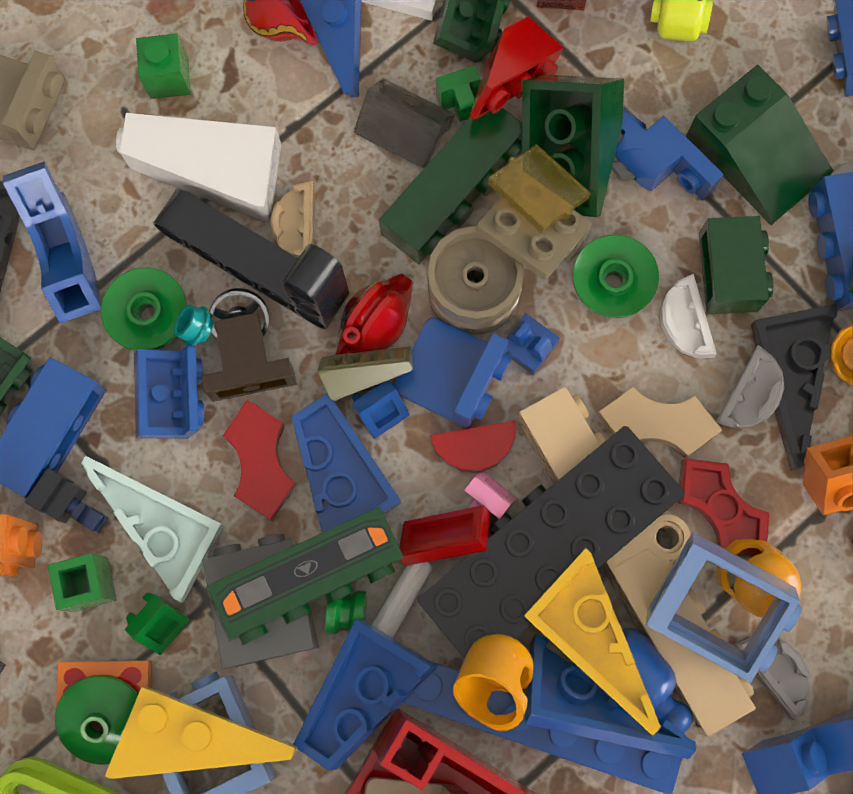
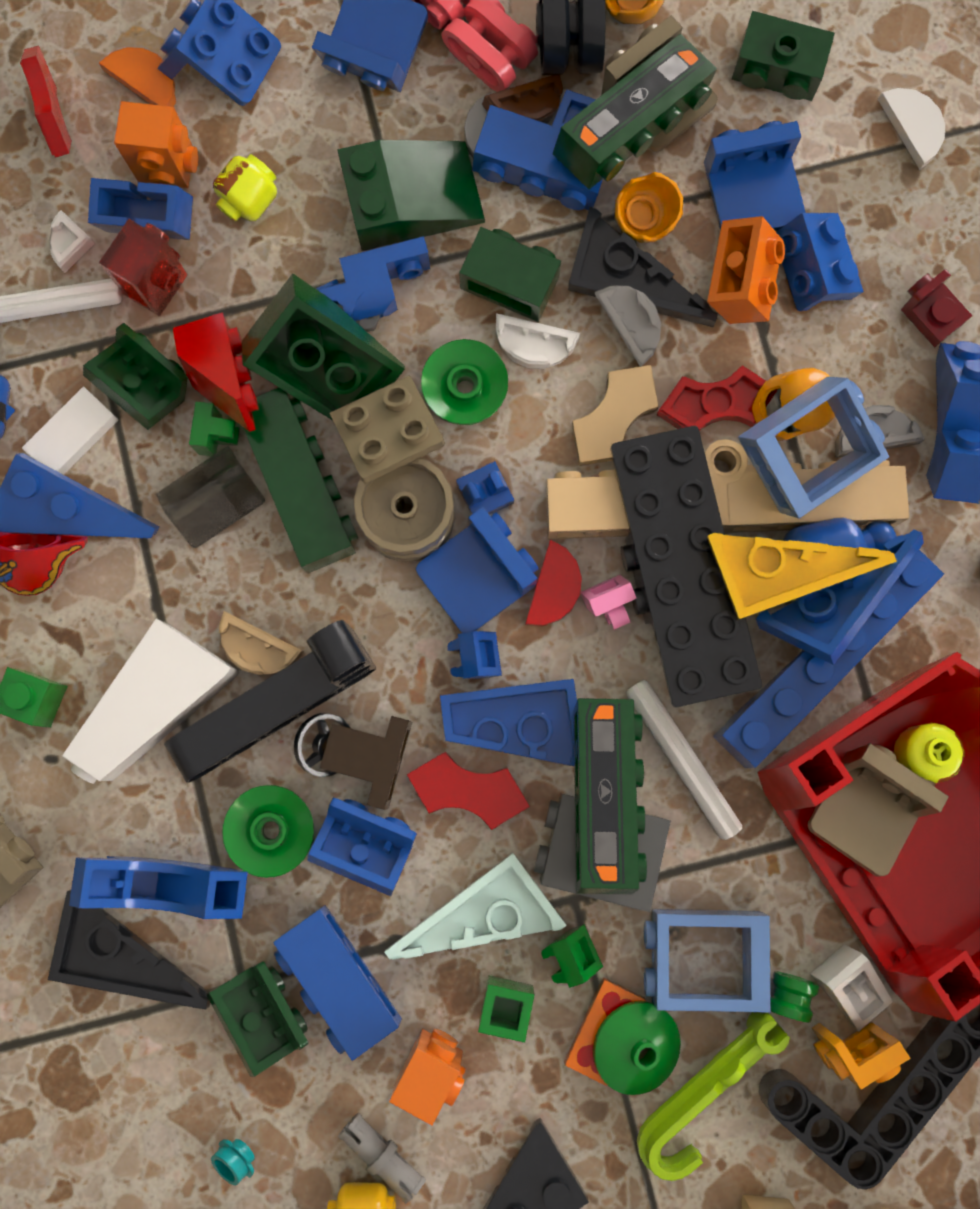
camera: 65 degrees left, 5 degrees up
(63, 499) = (411, 995): black piece -> none
(179, 737) = (694, 978): yellow wing -> none
(193, 325) = (312, 790): teal plate -> none
(344, 612) = (655, 777): green wheel -> none
(359, 693) = (731, 798): blue wing -> none
(360, 370) = (436, 653): olive slope -> none
(375, 316) = (388, 621): red hat -> none
(445, 535) = (626, 653): red tile -> none
(493, 665) = (770, 662): light orange helmet -> none
(538, 188) = (353, 405): clear yellow piece -> none

